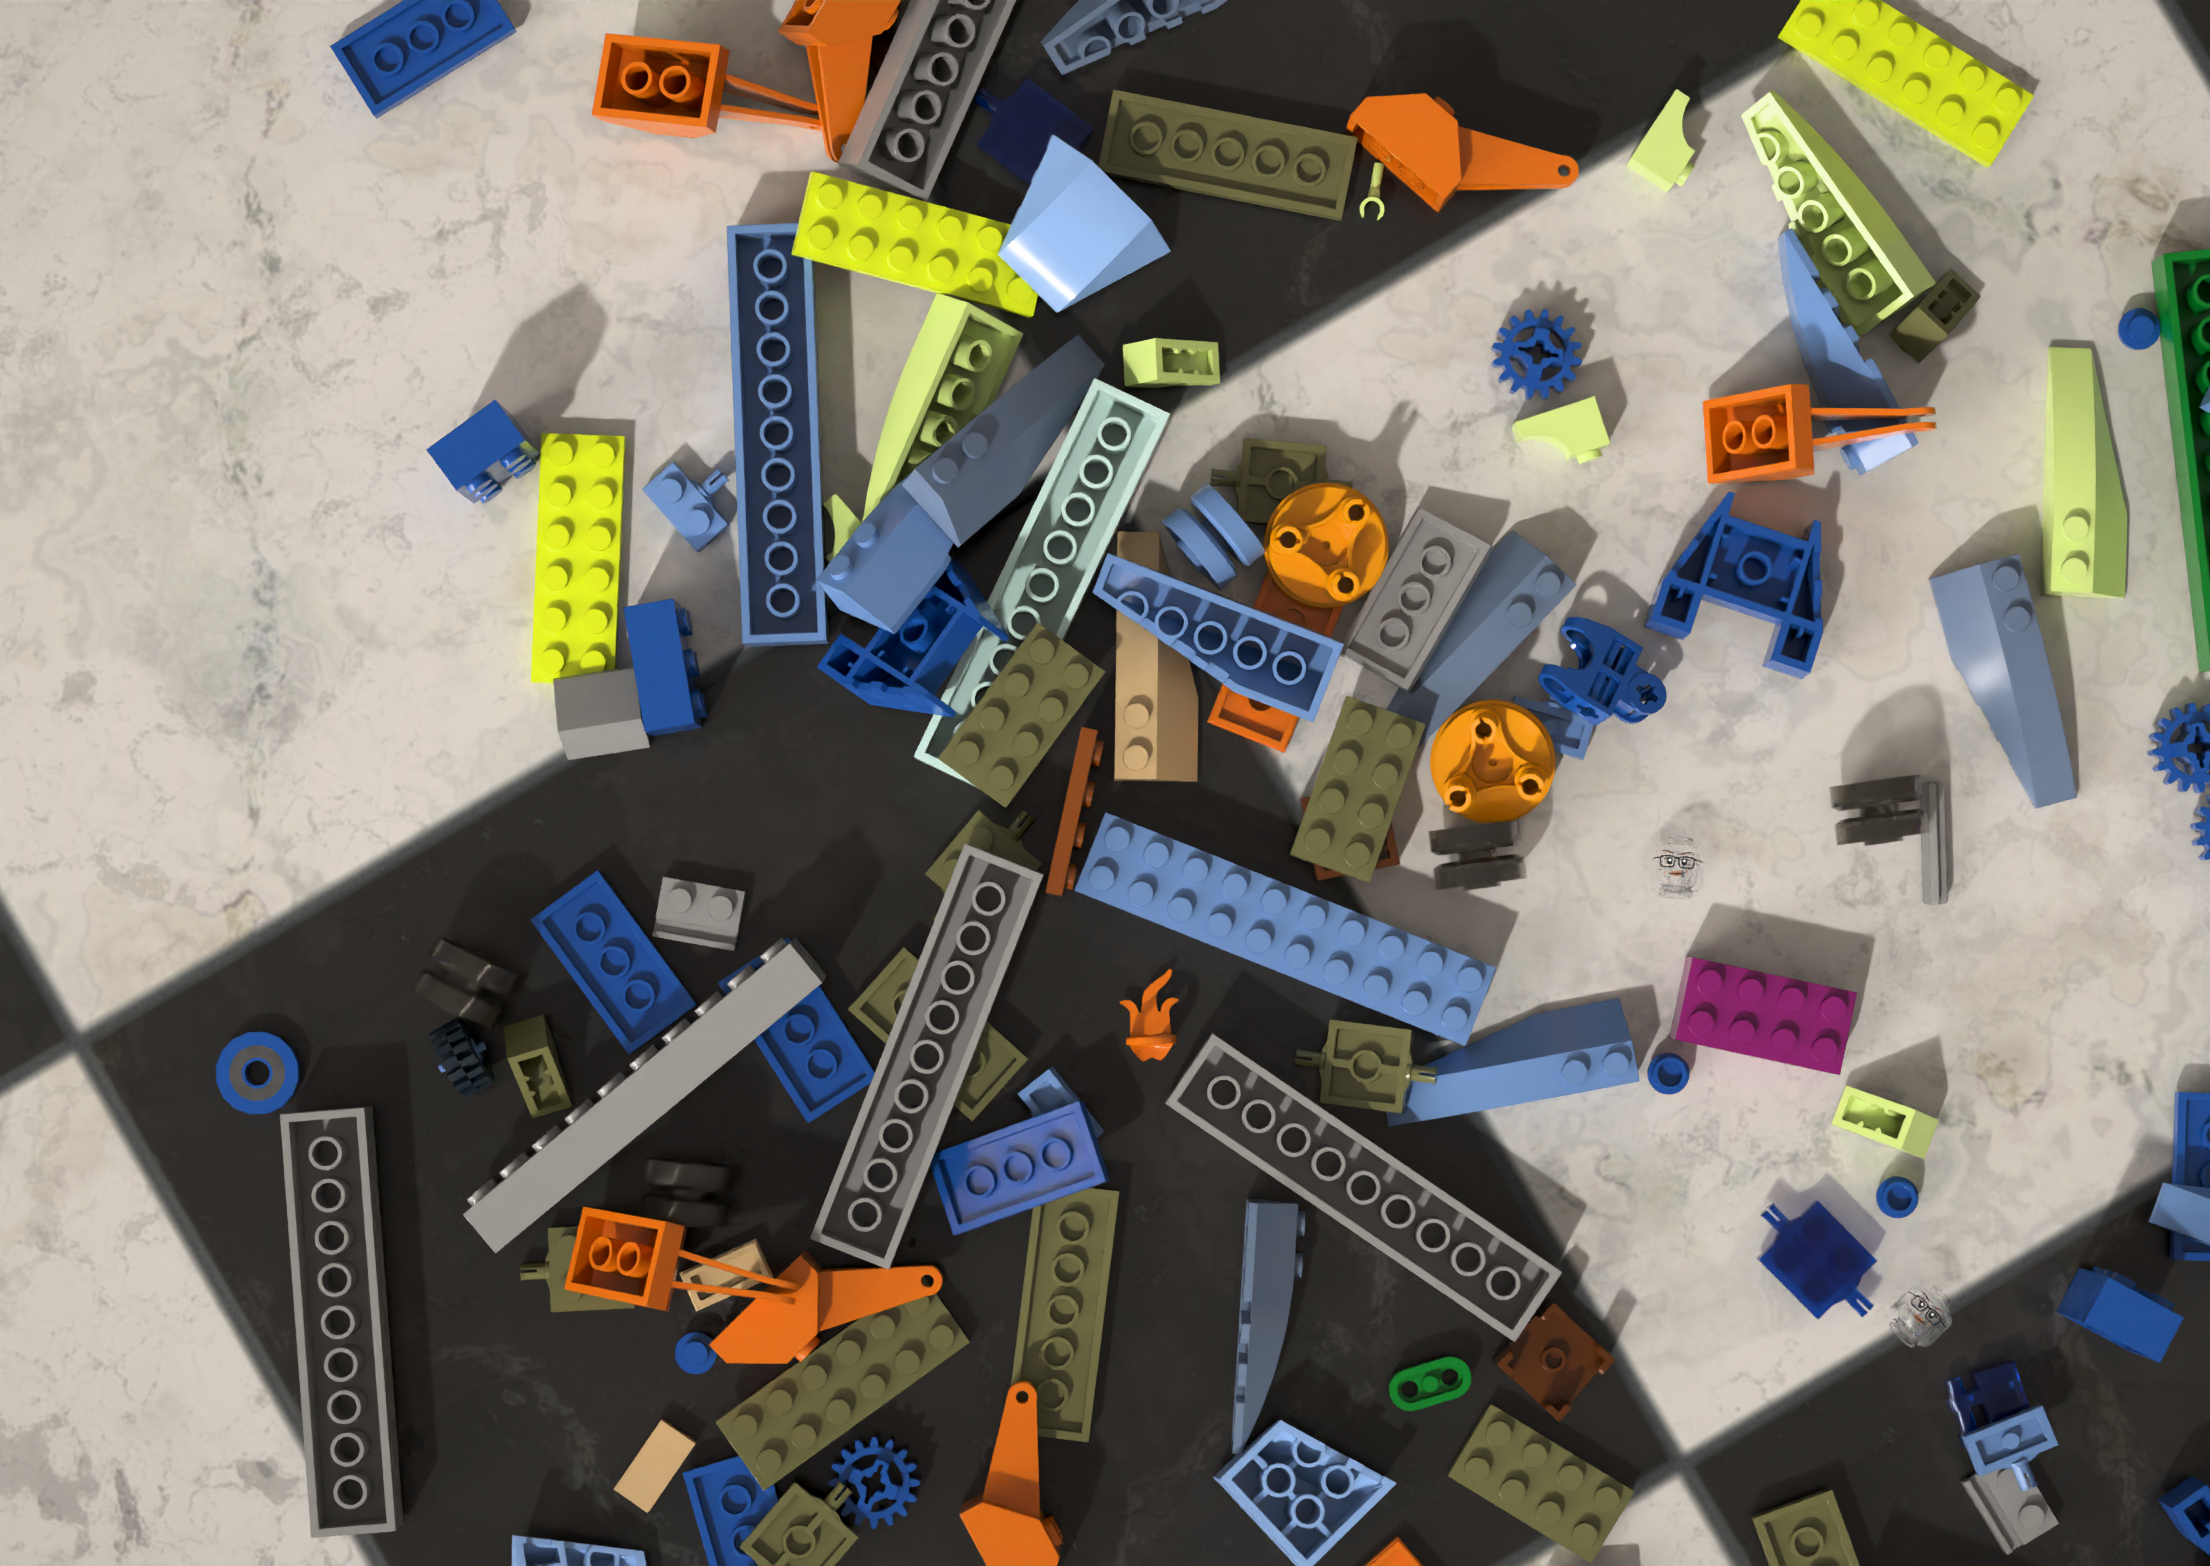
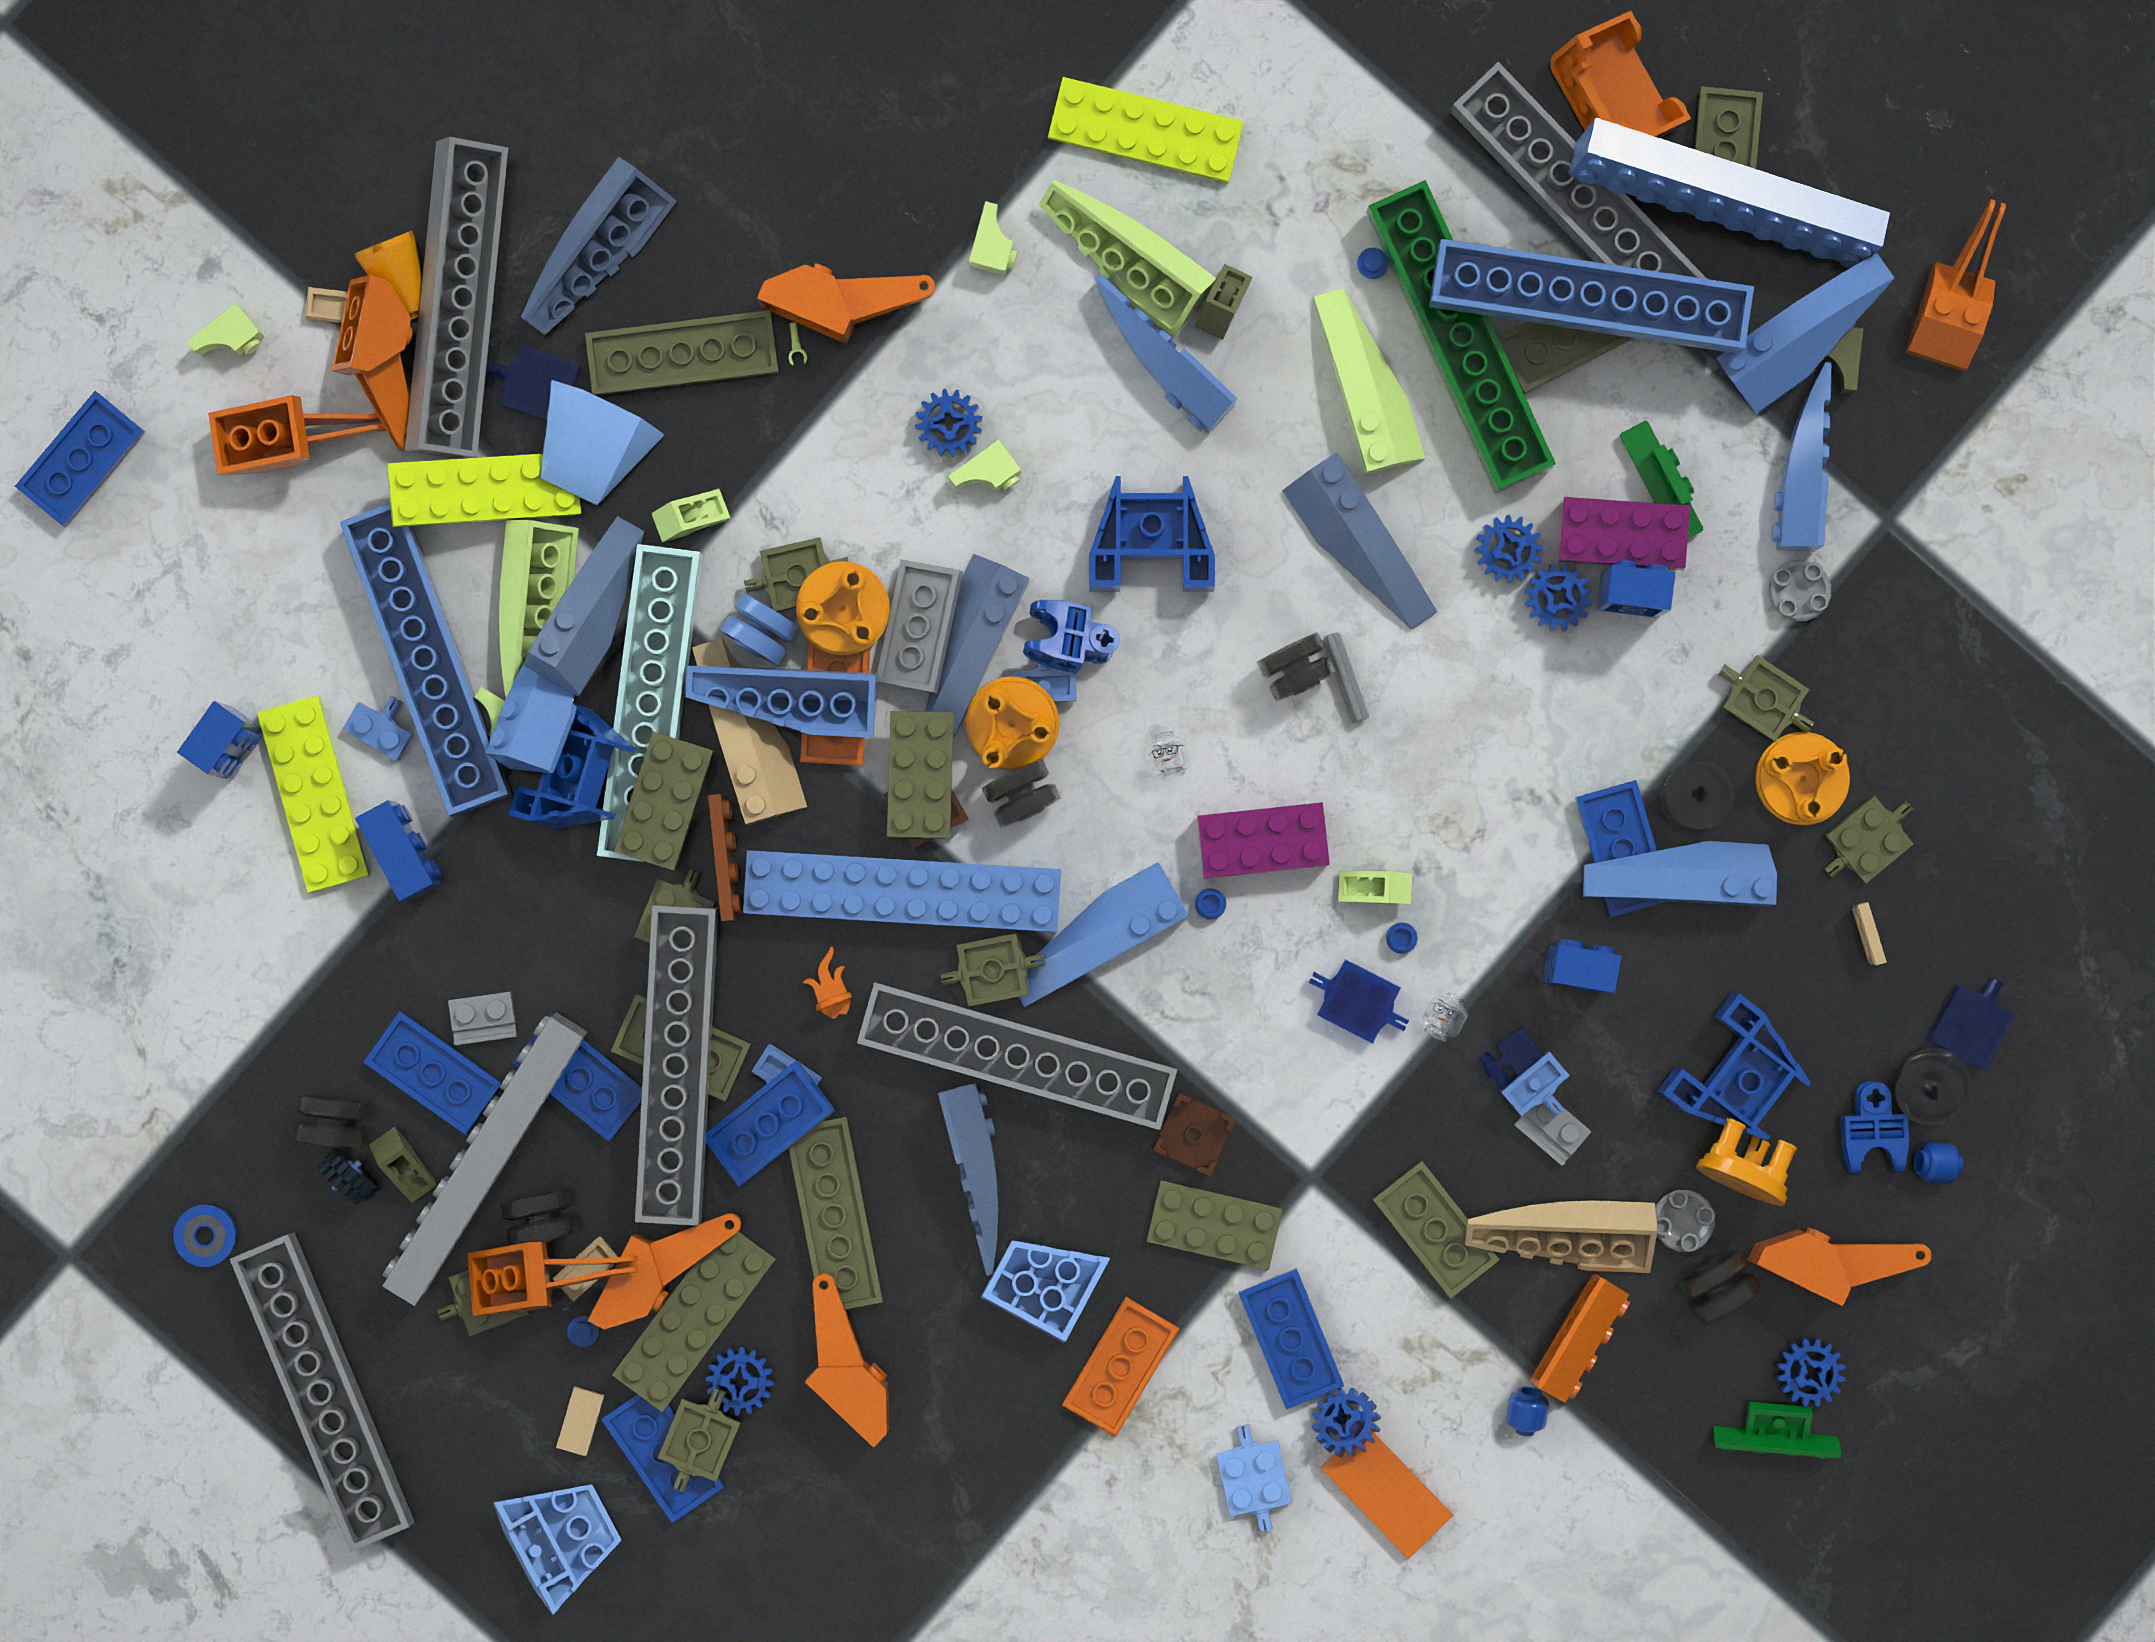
camera: 15 degrees left, 0 degrees up
(599, 713) = (363, 899): light grey slope -> none
(1430, 1387) = (1113, 1181): green plate -> none
(1770, 433) = (1131, 423): orange slope -> none

